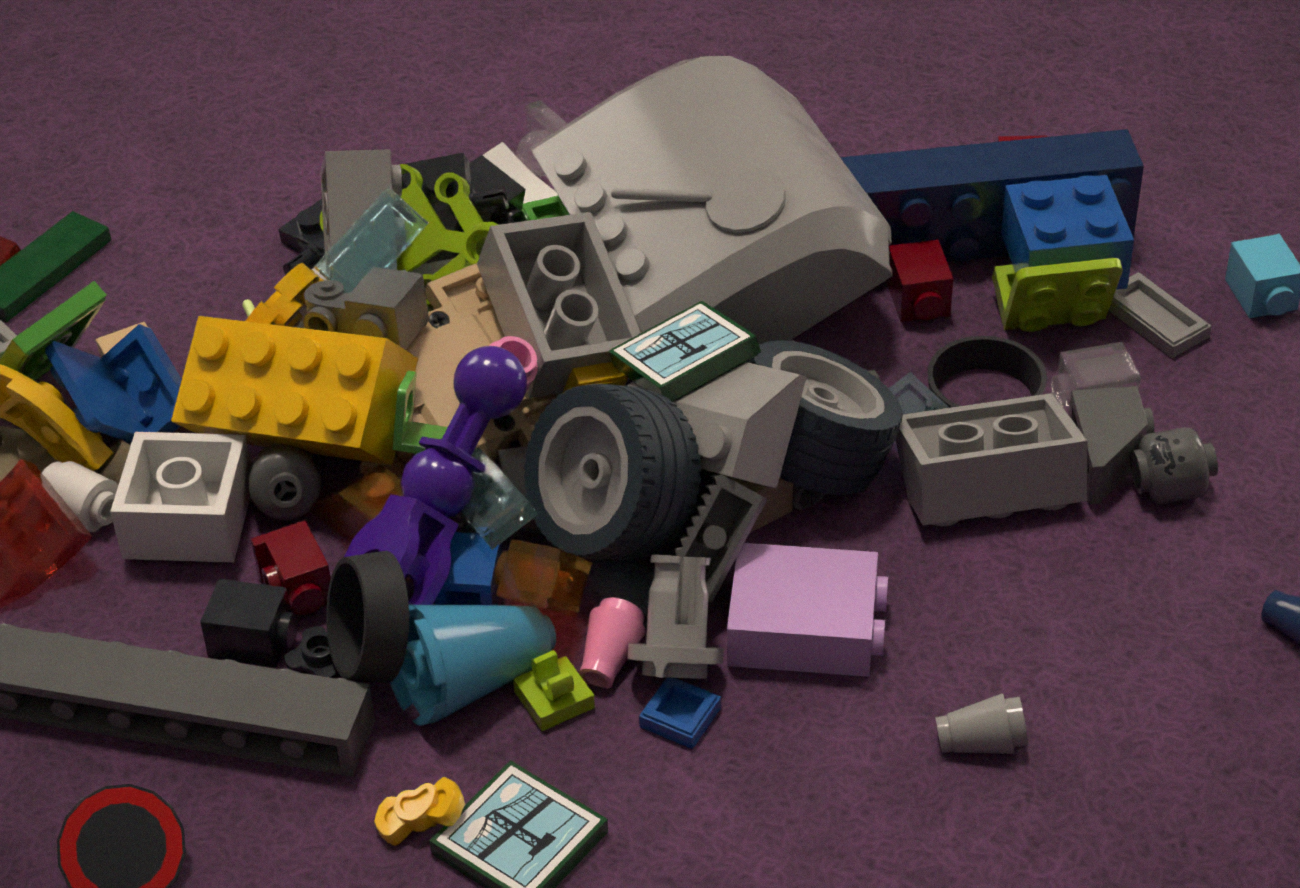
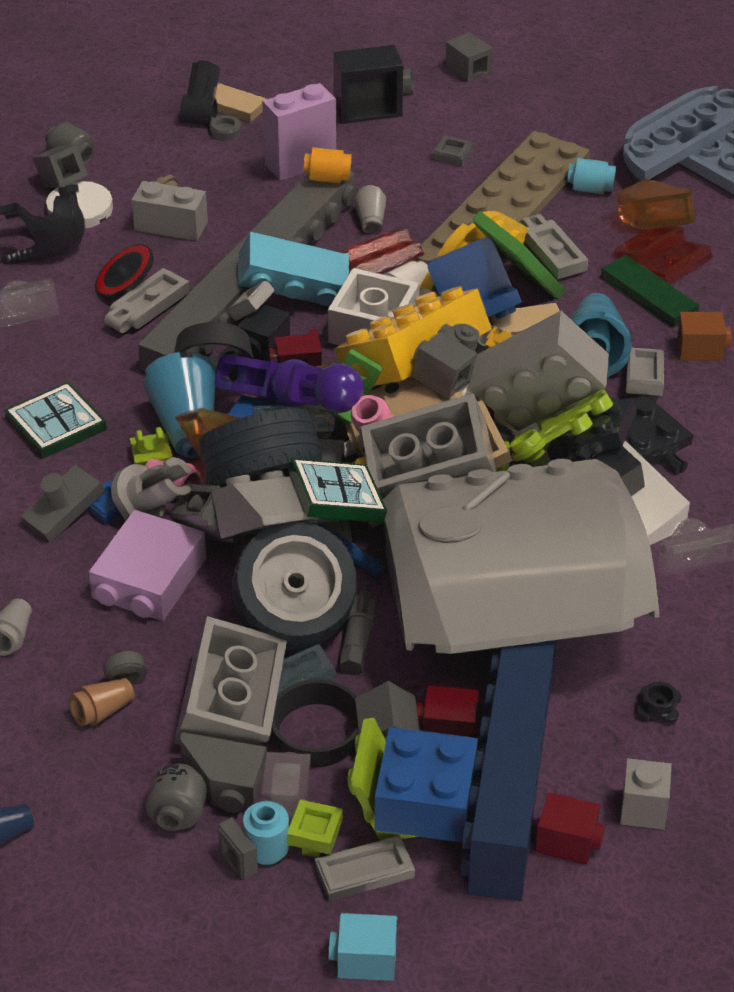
camera: 105 degrees right, 0 degrees up
(115, 596) = (292, 268): none -> medium azure brick
(149, 194) = (702, 336): none -> dark orange brick
(172, 274) = (603, 323): none -> dark azure cone
(205, 624) = (250, 300): none -> light grey tile
(207, 806) = (146, 301): none -> light grey hinge
(230, 236) = (645, 372): none -> light grey tile
(372, 240) = (501, 354): clear light blue plate -> none
(419, 810) = (90, 380): yellow piece -> none
(719, 746) = (62, 502): none -> dark grey tile
(950, 118) = (646, 793): none -> light grey brick
(963, 313) = (389, 706): none -> dark grey brick
(998, 578) = (125, 665): none -> dark grey tile
(1061, 589) = (100, 700): none -> medium nougat cone
(1147, 339) = (314, 828): none -> lime tile
(1178, 374) = (267, 827): none -> medium azure brick
(1208, 399) = (237, 849): none -> dark grey tile

